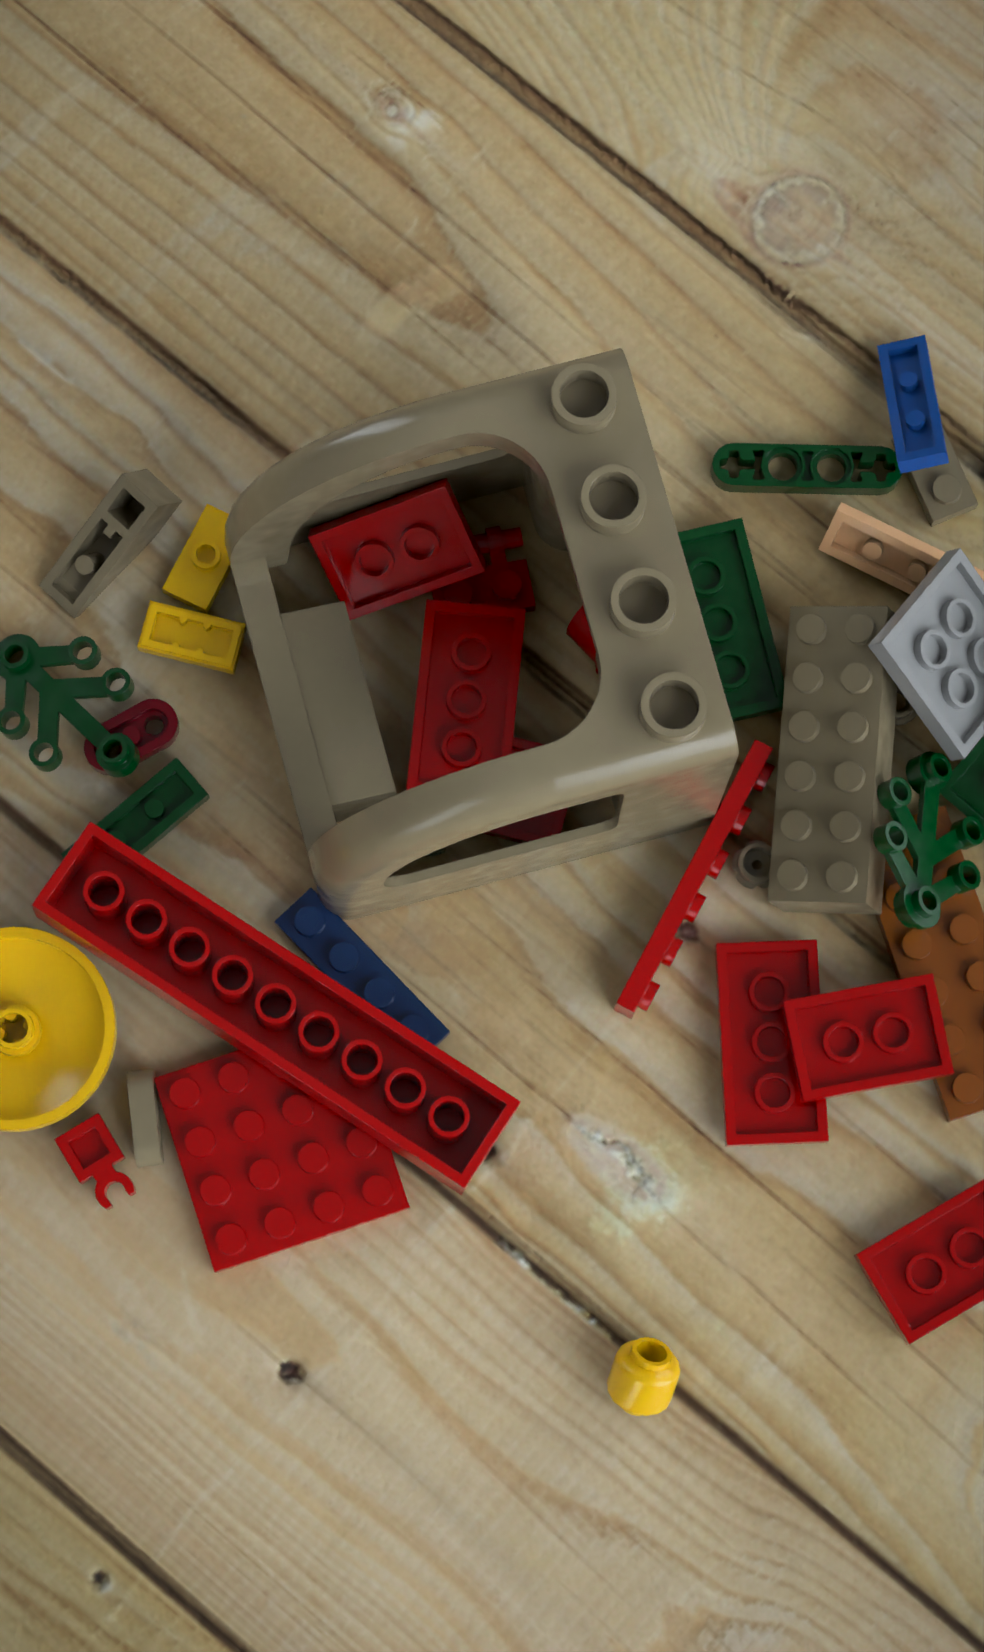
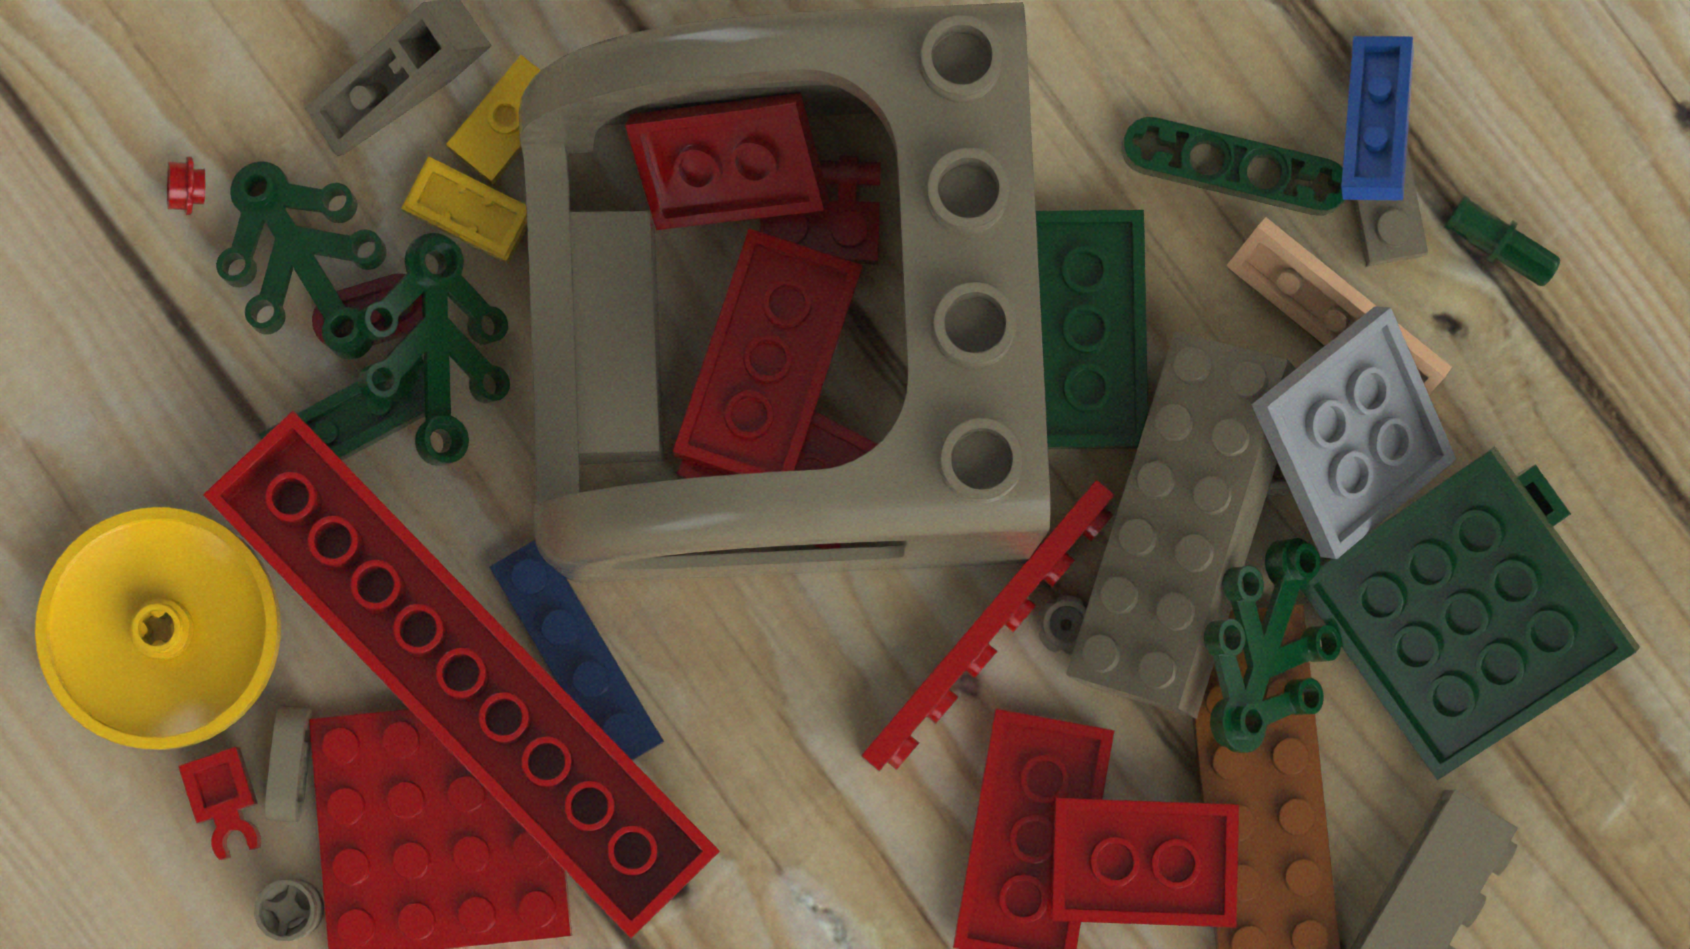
camera: 15 degrees right, 5 degrees up
(164, 1235) = (278, 909): none -> dark tan wheel
(193, 745) = (436, 339): none -> dark green plant

